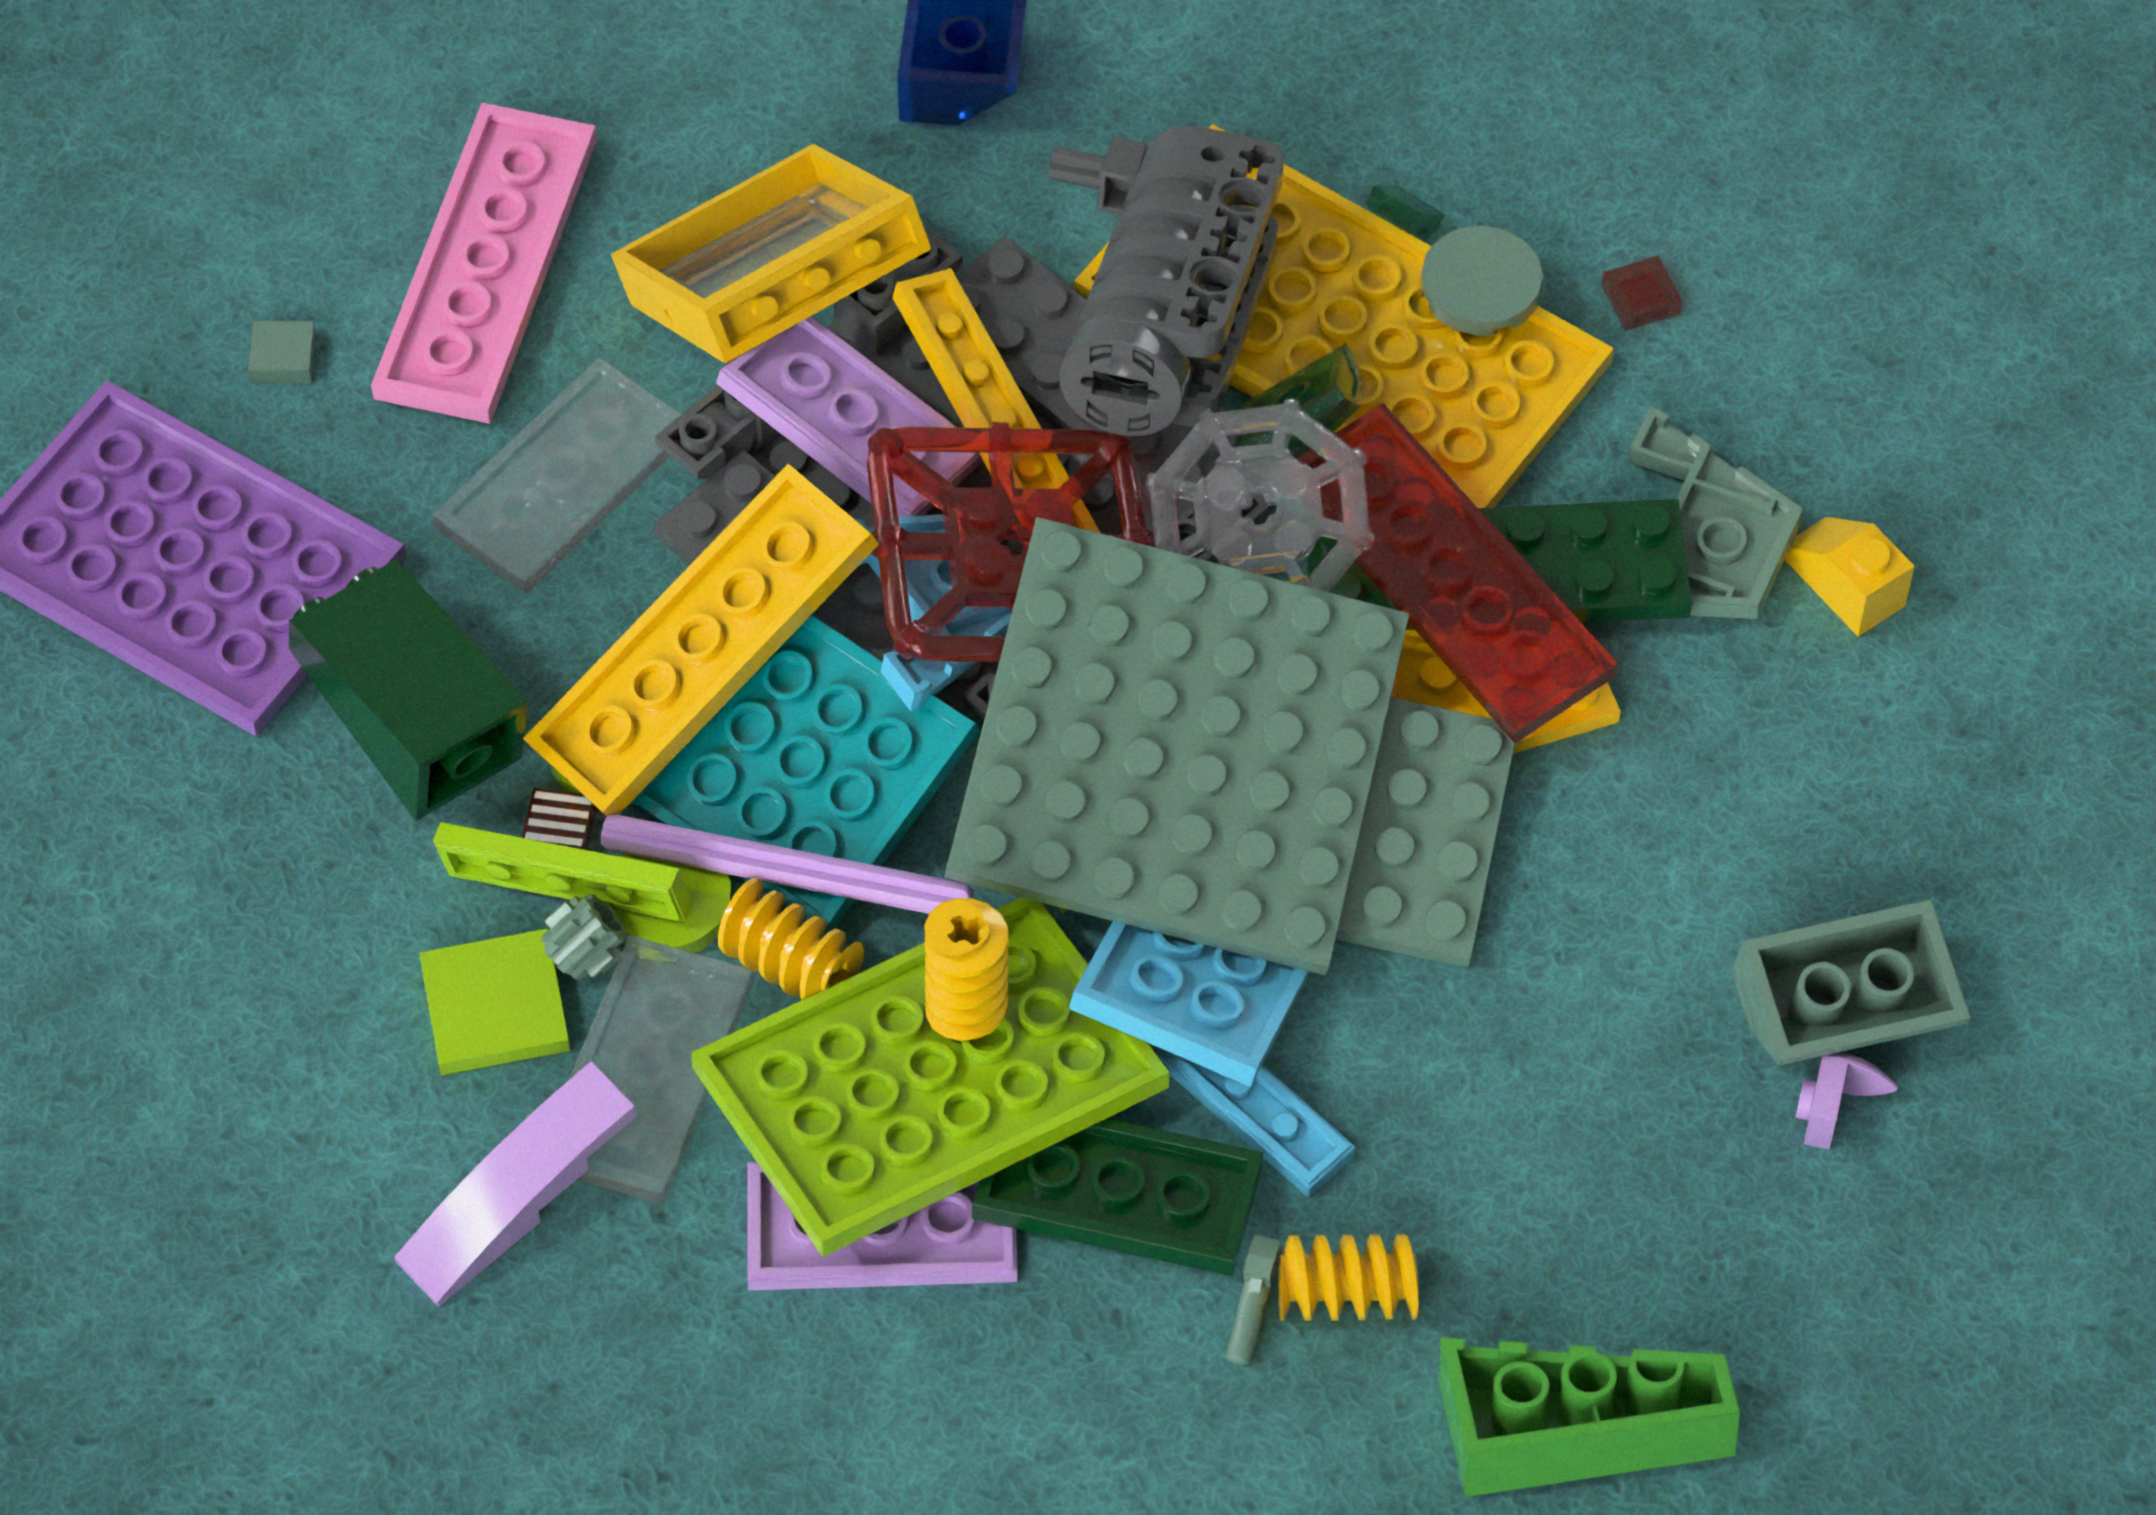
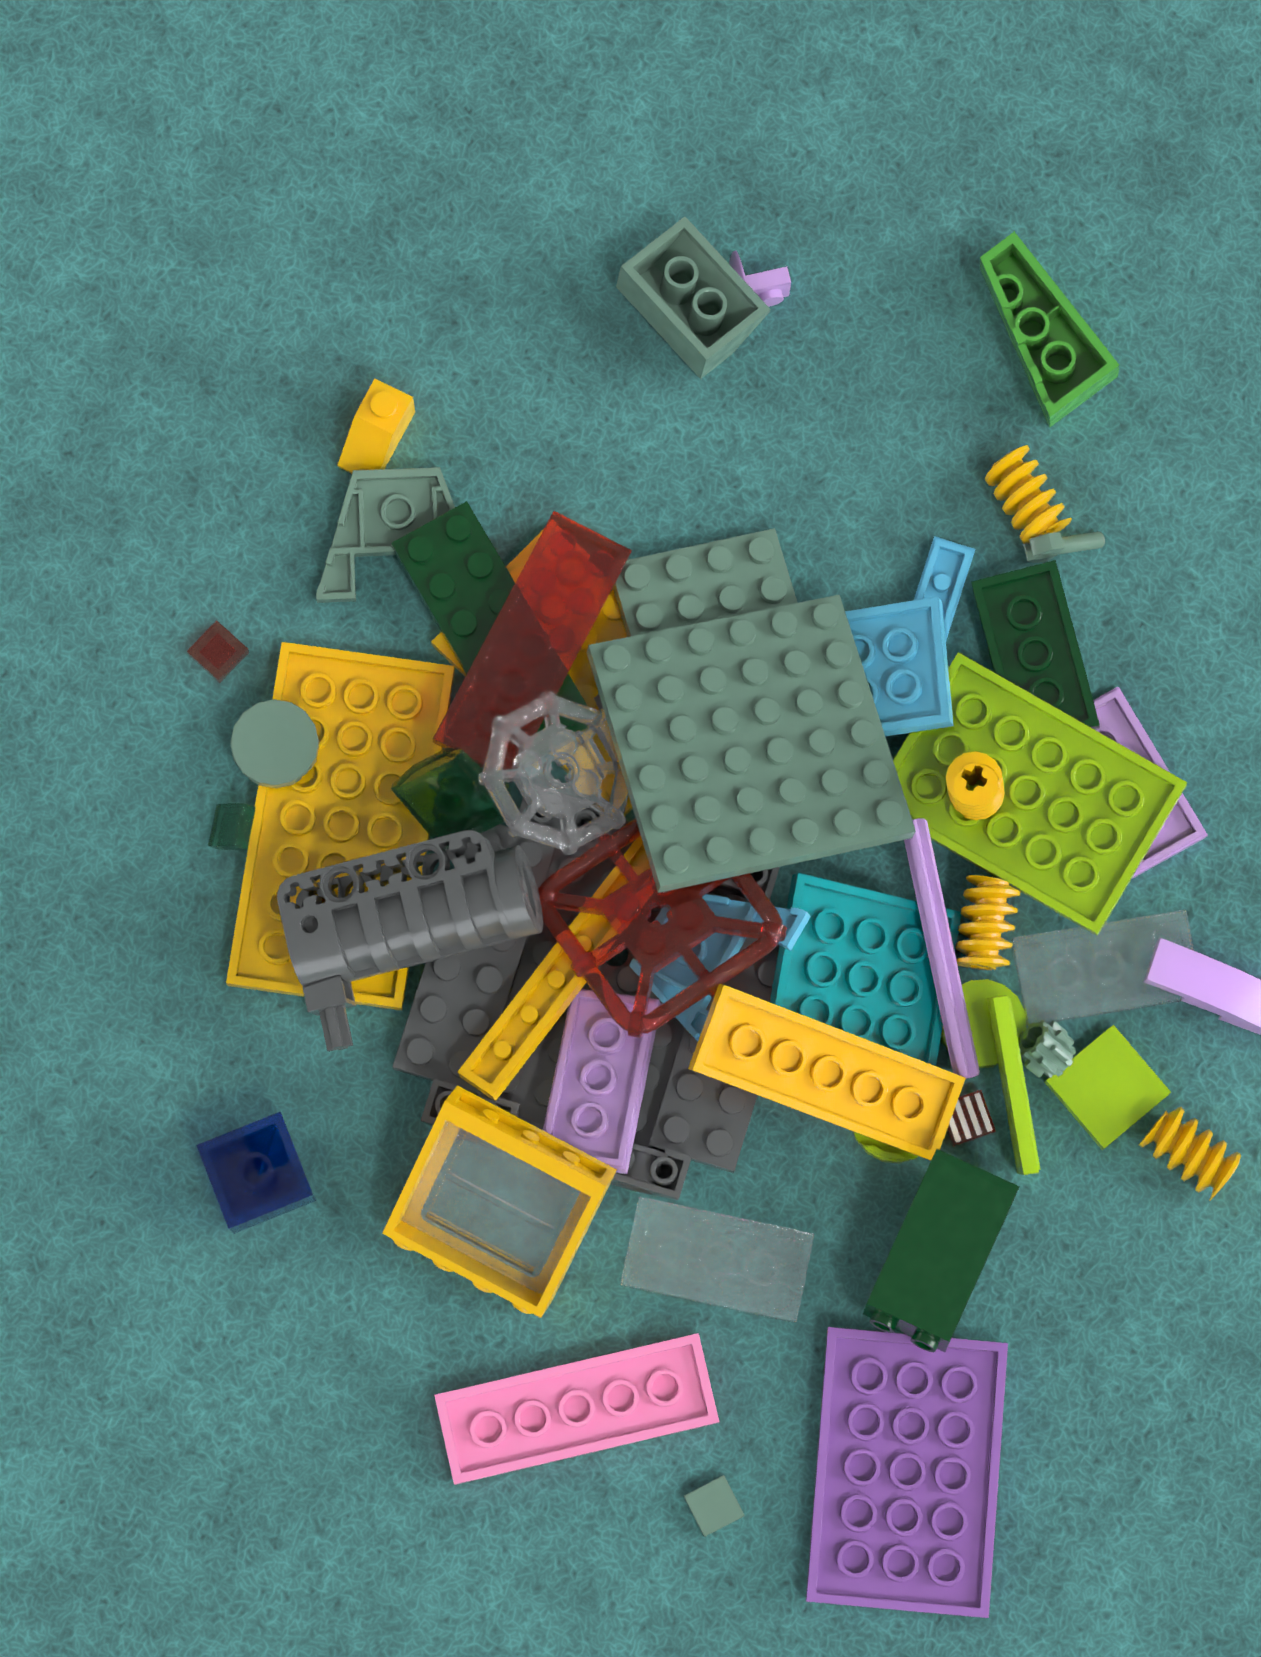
camera: 120 degrees left, 20 degrees up
(347, 1040) = (1192, 1151): none -> yellow piece

